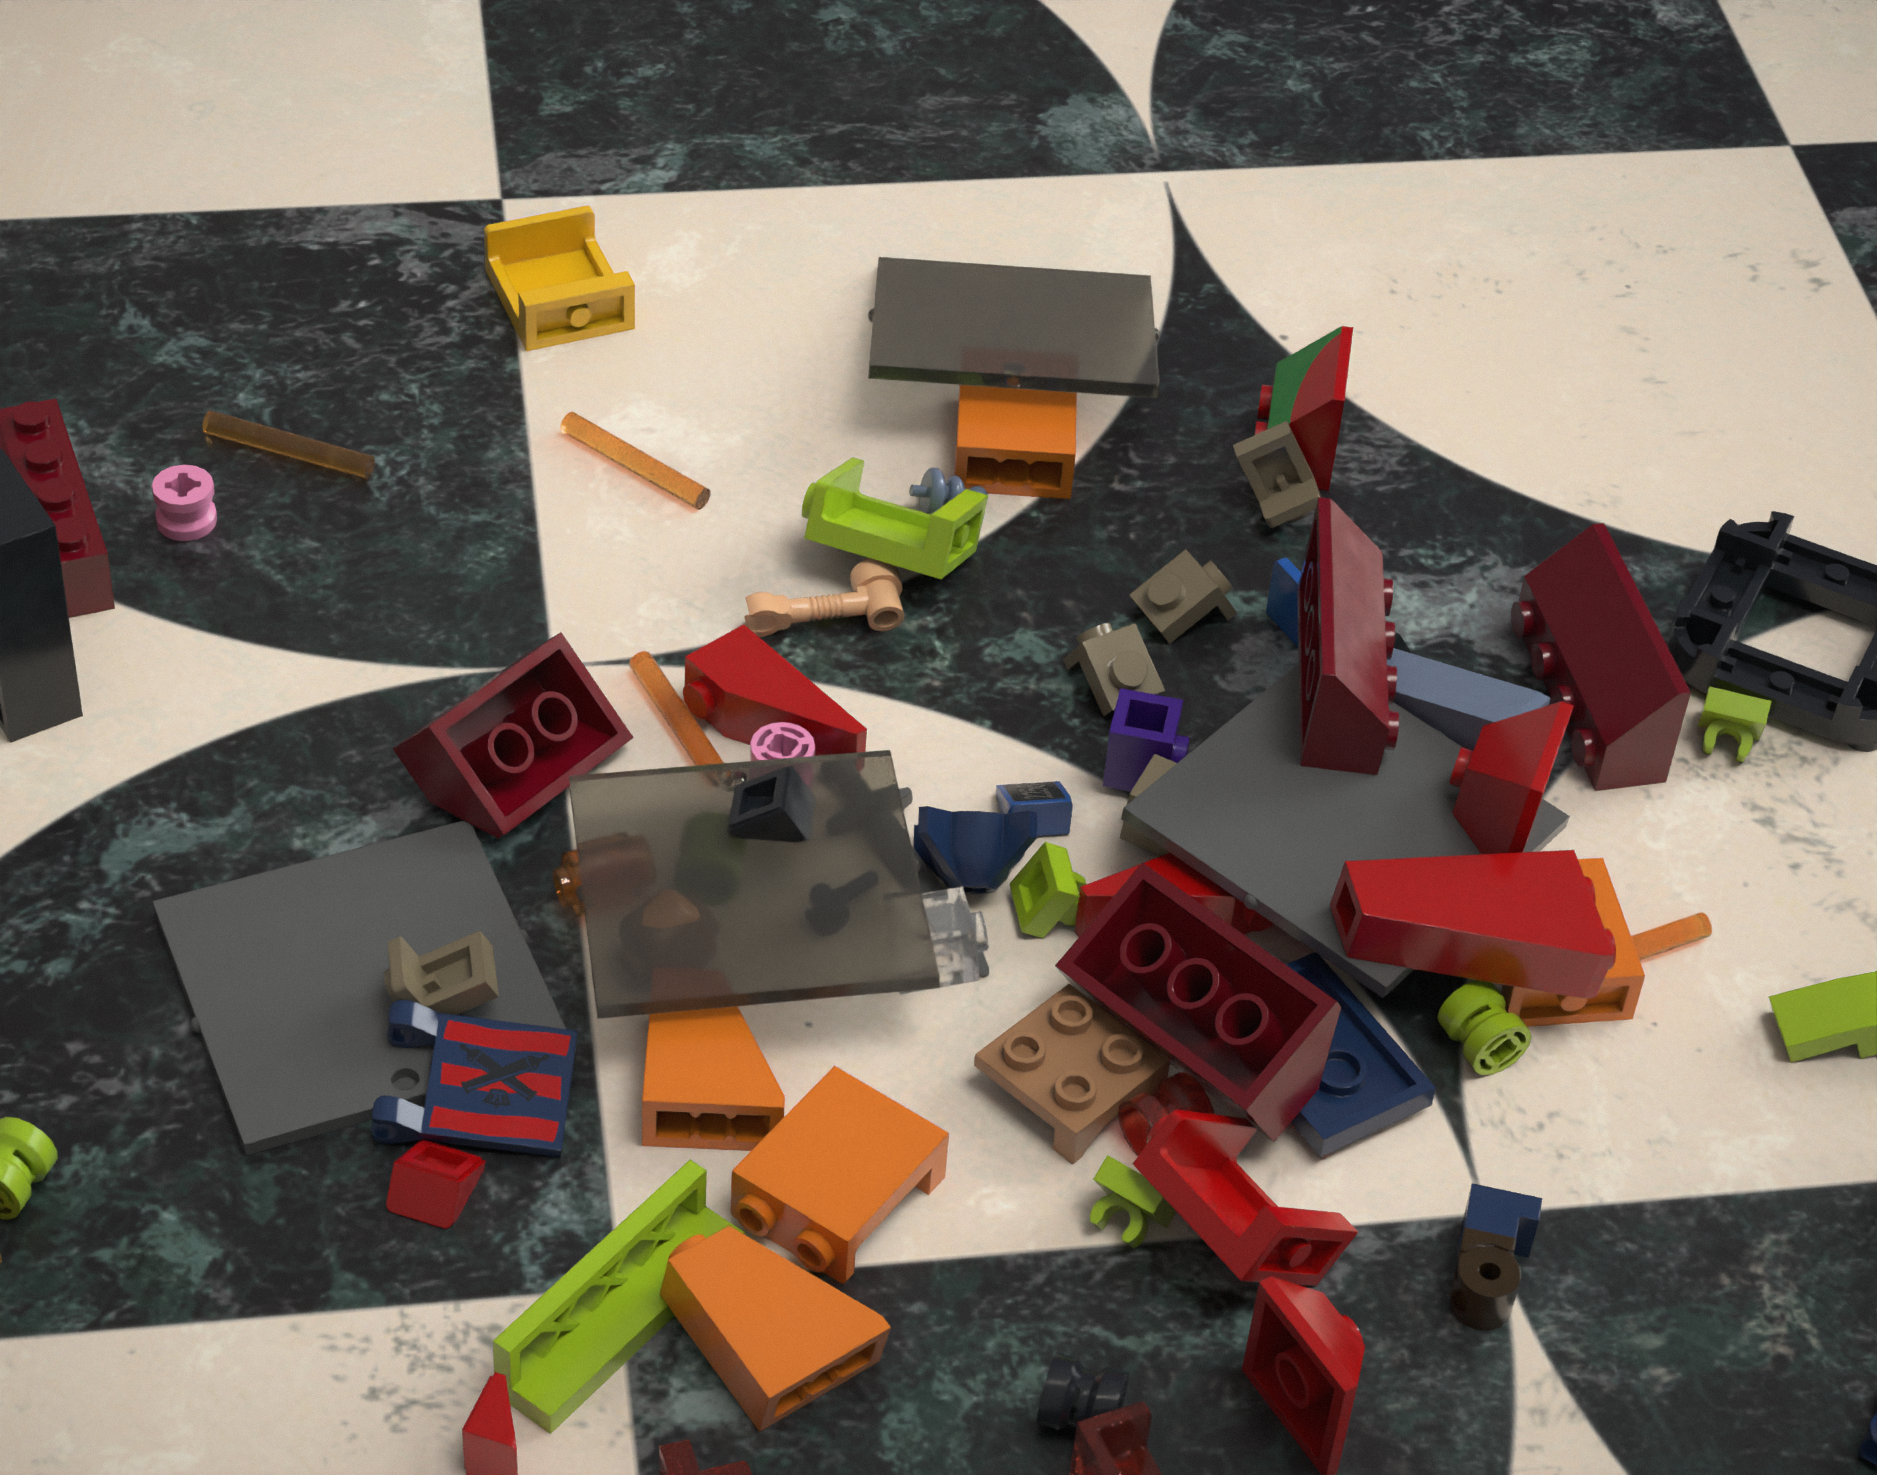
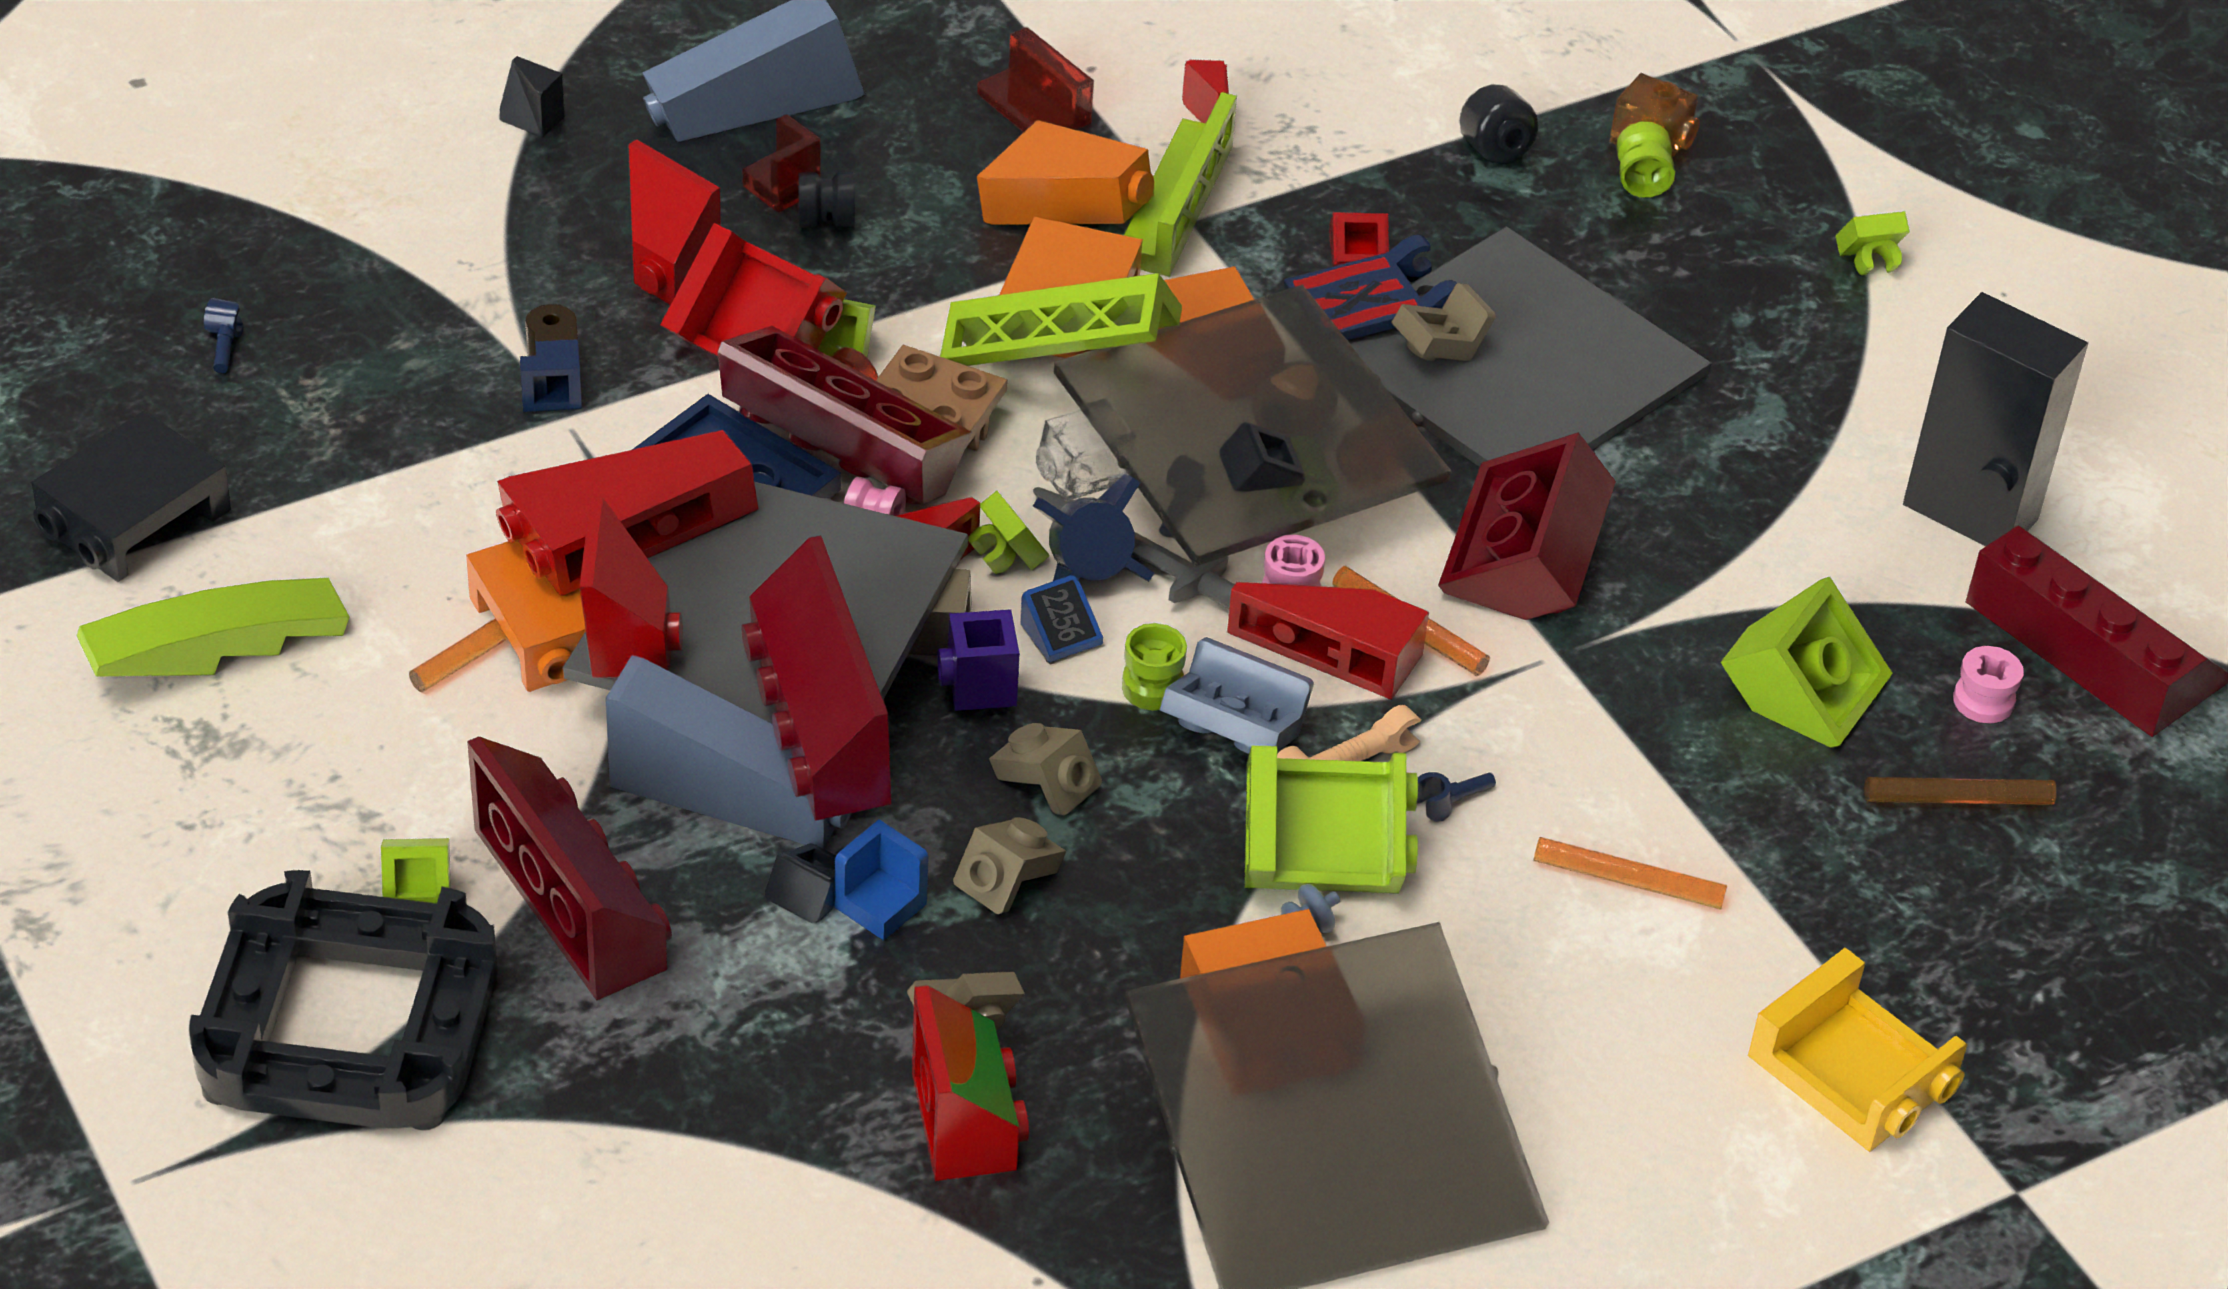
camera: 160 degrees right, 0 degrees up
(150, 1272) = (1498, 118): none -> black head
(355, 551) = (1809, 665): none -> lime slope
(764, 562) = (1441, 793): none -> dark blue hand
(895, 1052) = (1059, 320): none -> lime fence
(912, 662) = (1239, 697): none -> sand blue bracket
(969, 718) = (1153, 662): none -> lime wheel

